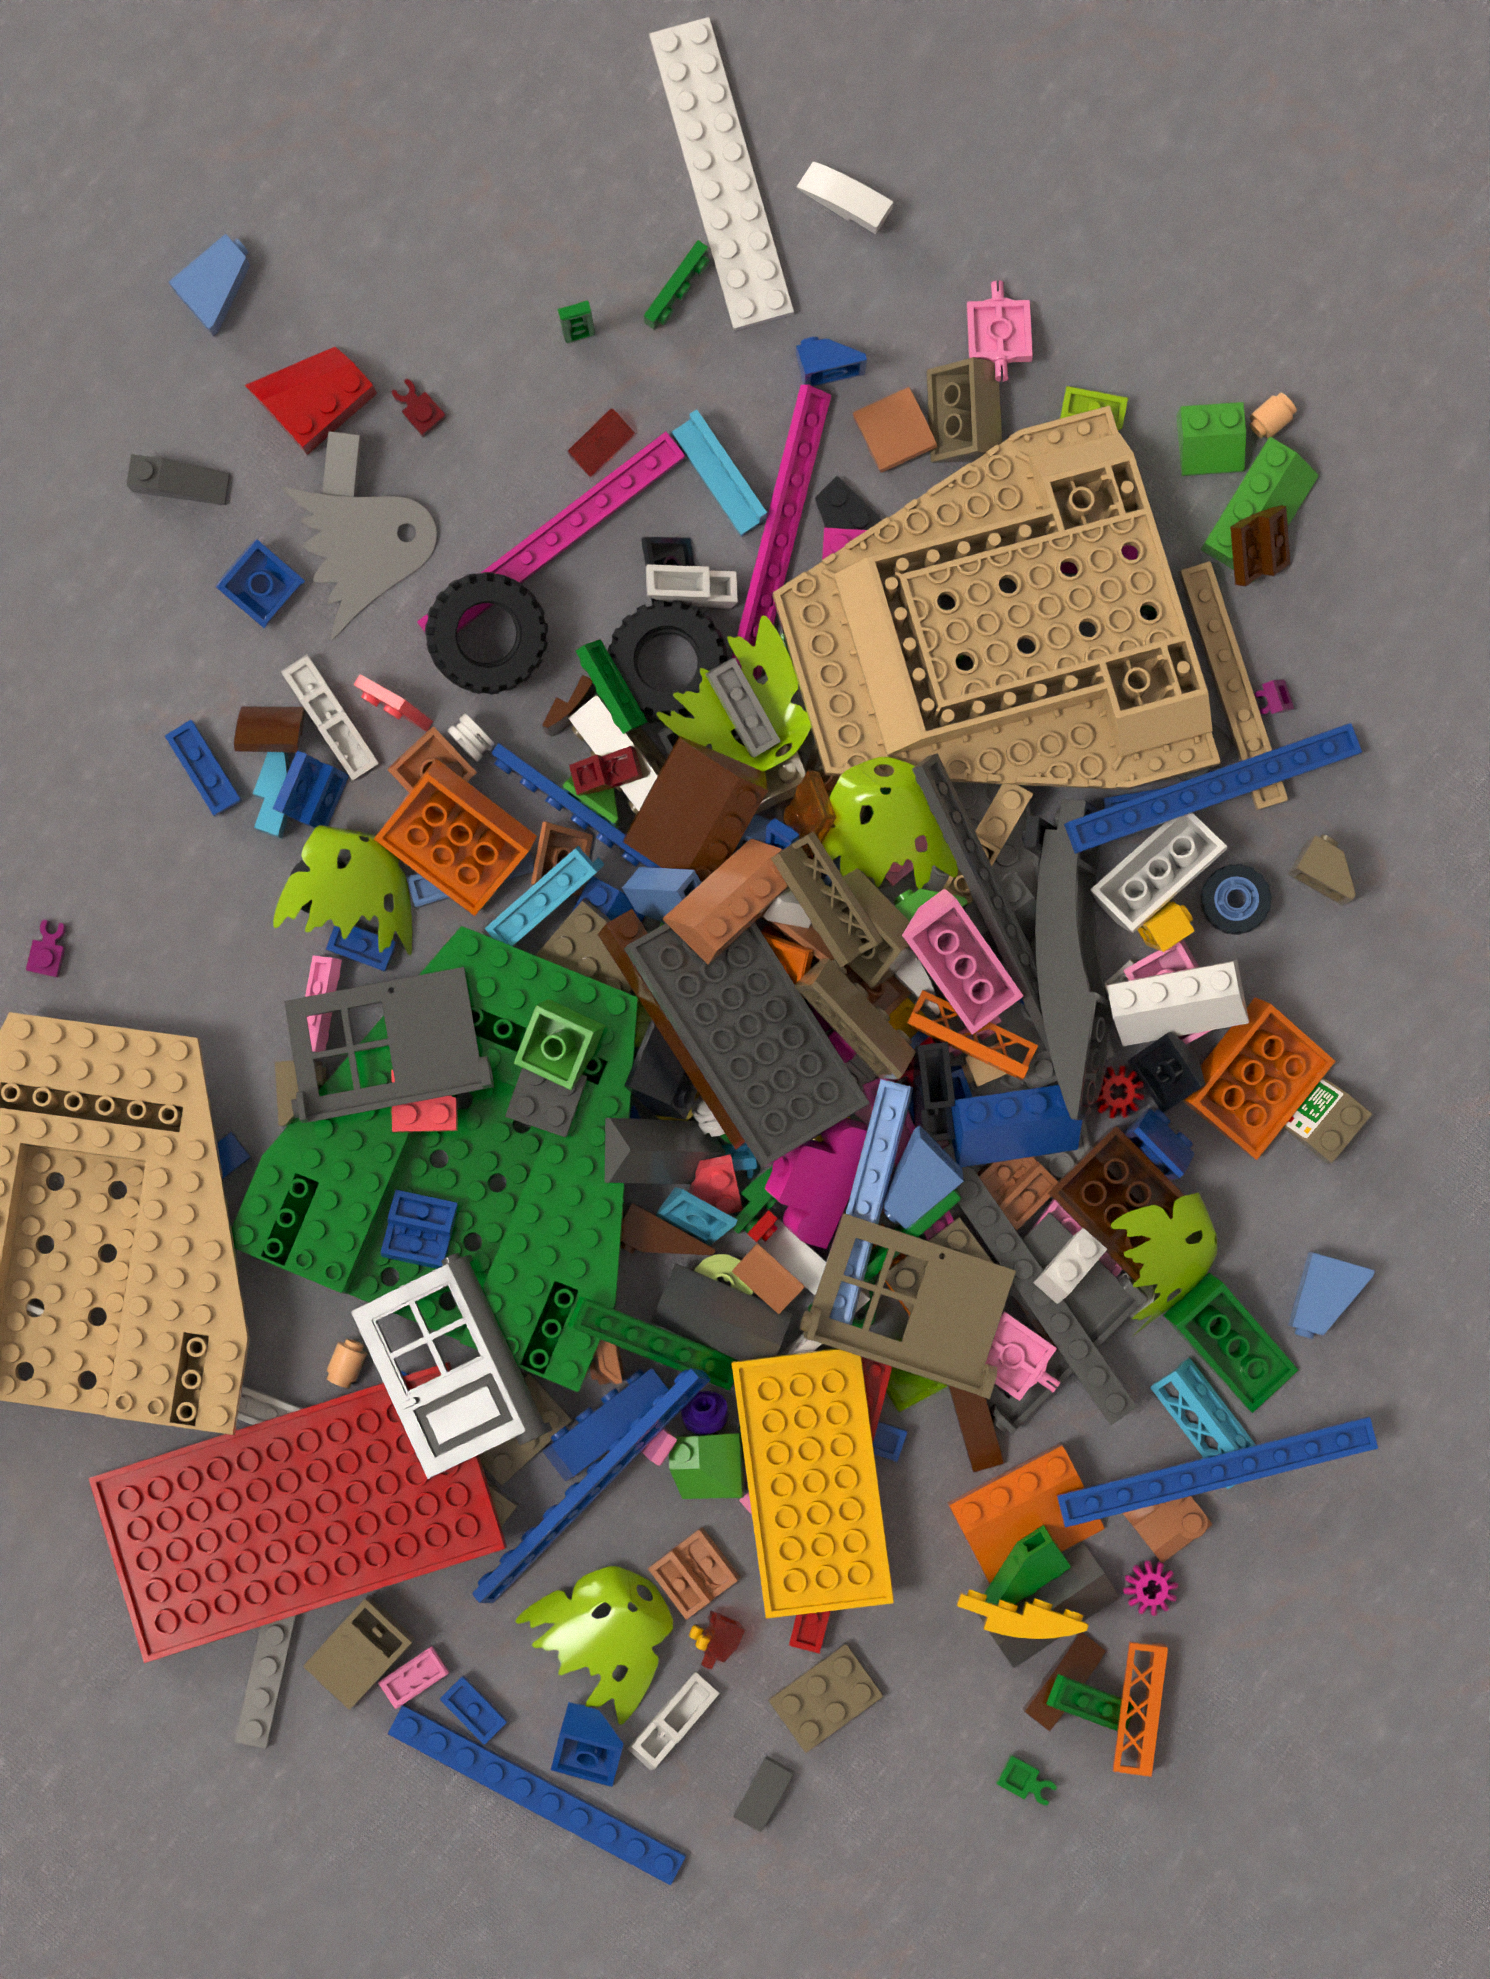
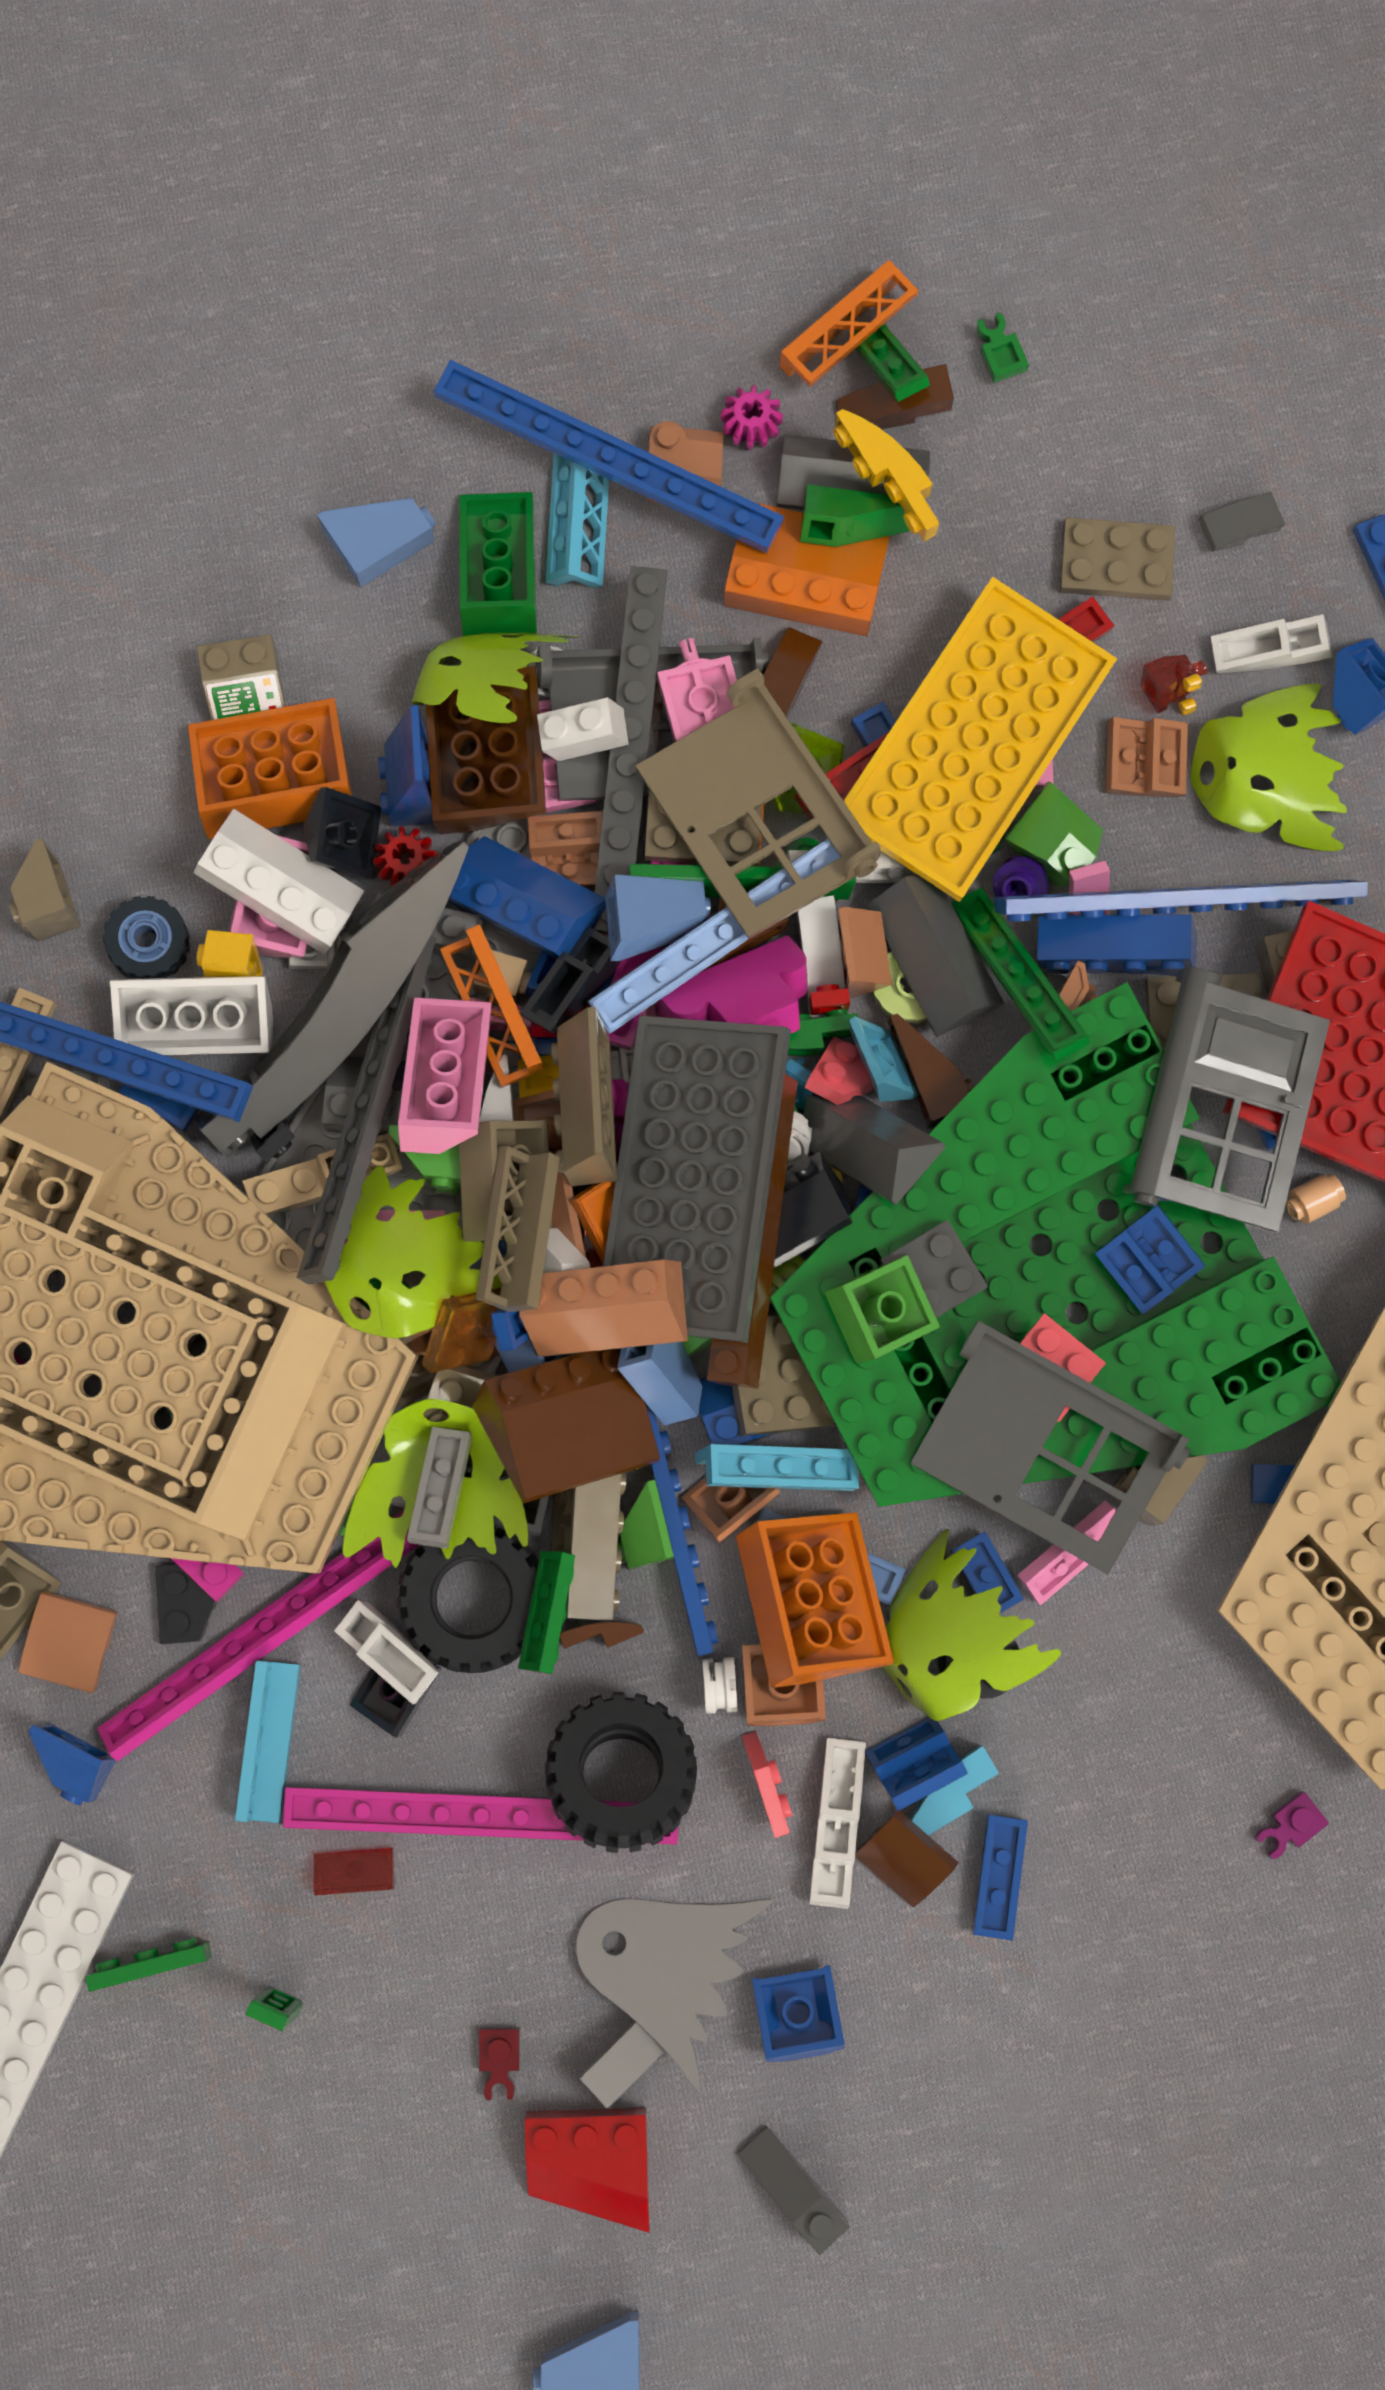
camera: 145 degrees left, 5 degrees down
(606, 772) = (620, 1535): dark red slope -> none

